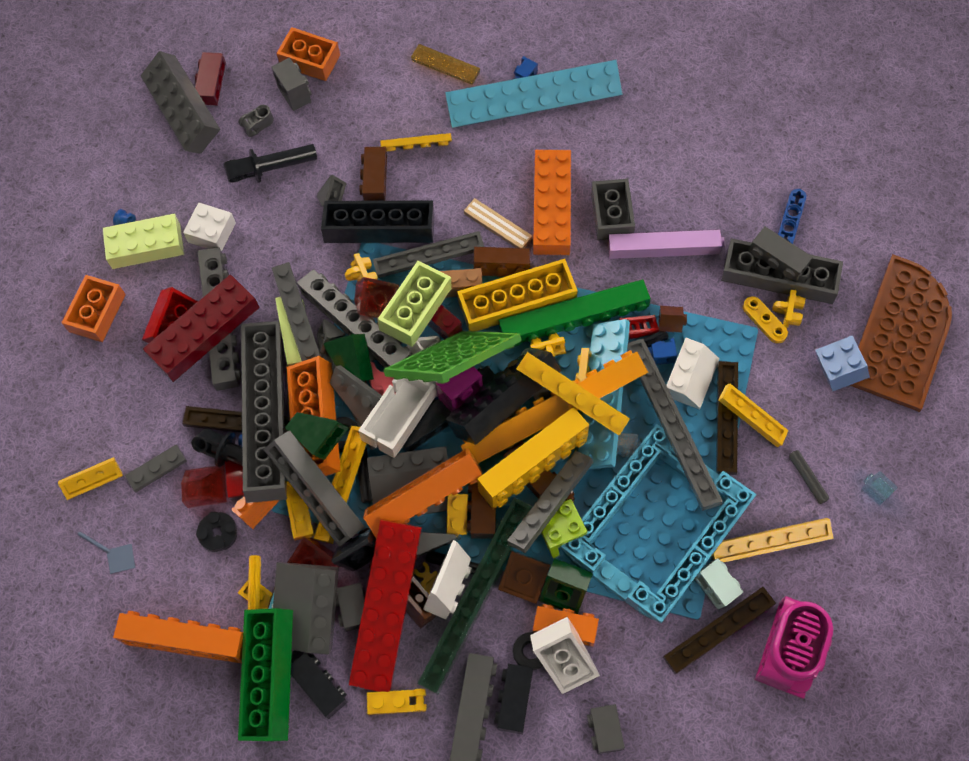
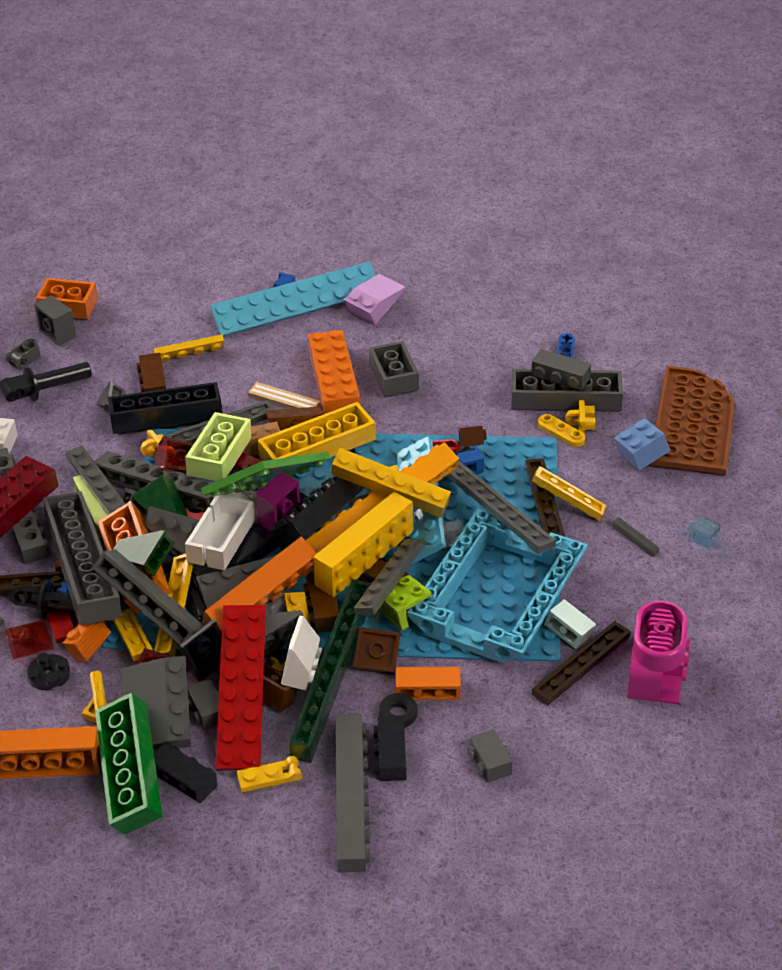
camera: 15 degrees left, 25 degrees down
(445, 64) = (203, 290): clear yellow plate -> none
(564, 655) = (433, 699): white slope -> none
(565, 586) = (420, 647): dark green slope -> none
(578, 312) = (386, 441): green brick -> none
(613, 106) = (374, 298): none -> lavender slope
(665, 244) = (450, 388): lavender brick -> none
(692, 373) = (503, 470): white slope -> none
(774, 540) = (616, 585): yellow plate -> none

